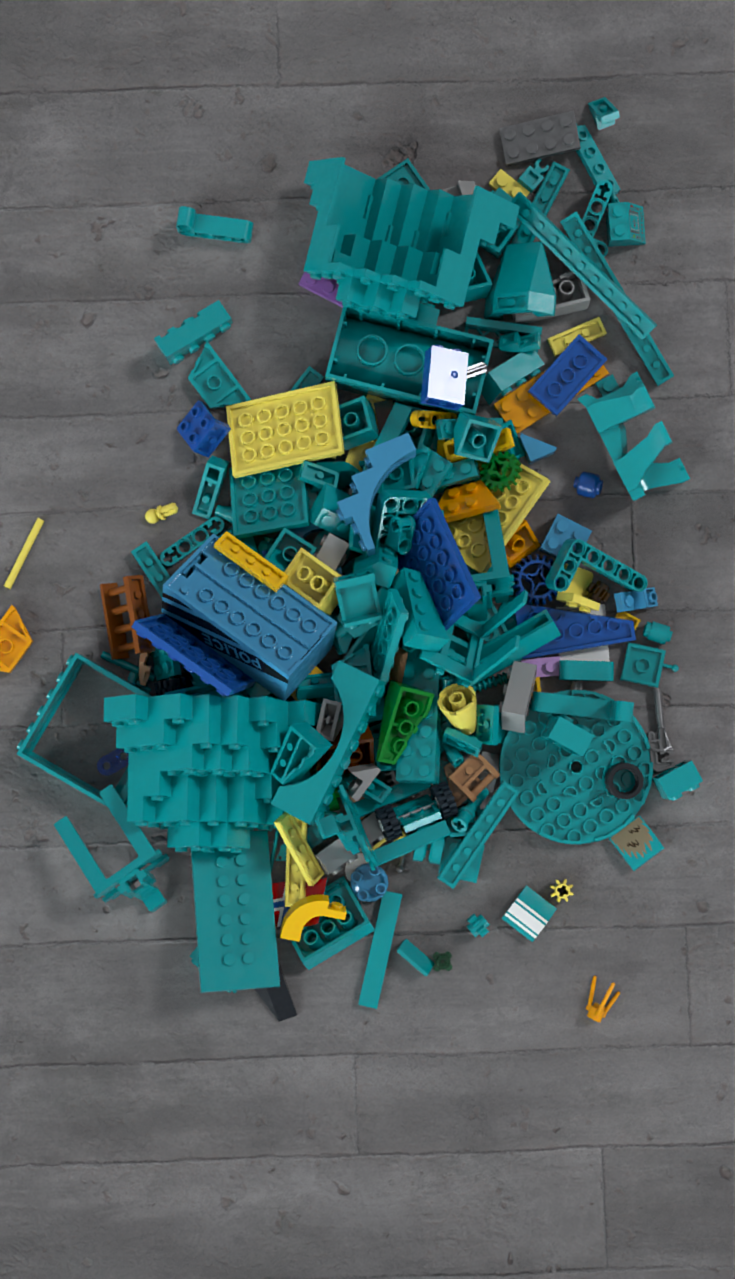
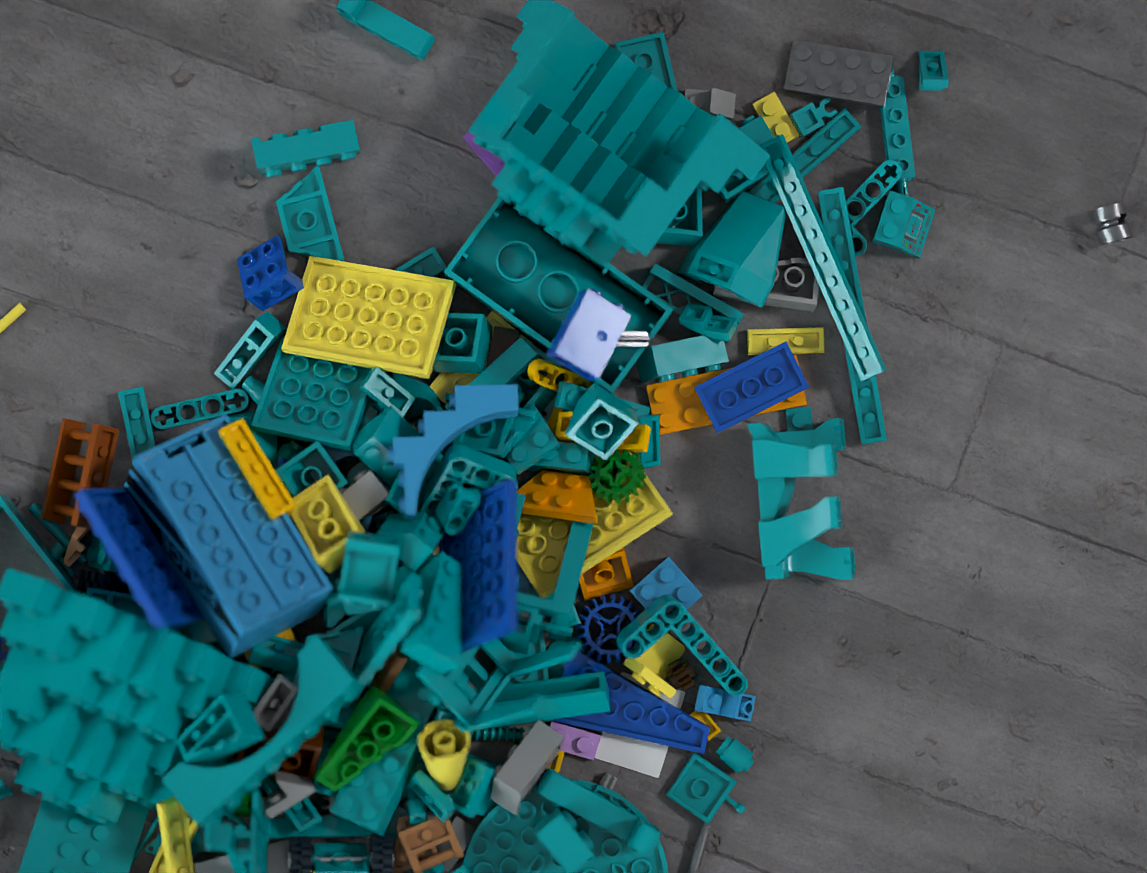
camera: 20 degrees right, 0 degrees up
(153, 515) = (165, 357): light yellow axle -> none
(535, 449) = (674, 463): dark azure slope -> none
(586, 670) = (626, 767): teal beam -> none
(588, 484) = (723, 535): blue head -> none

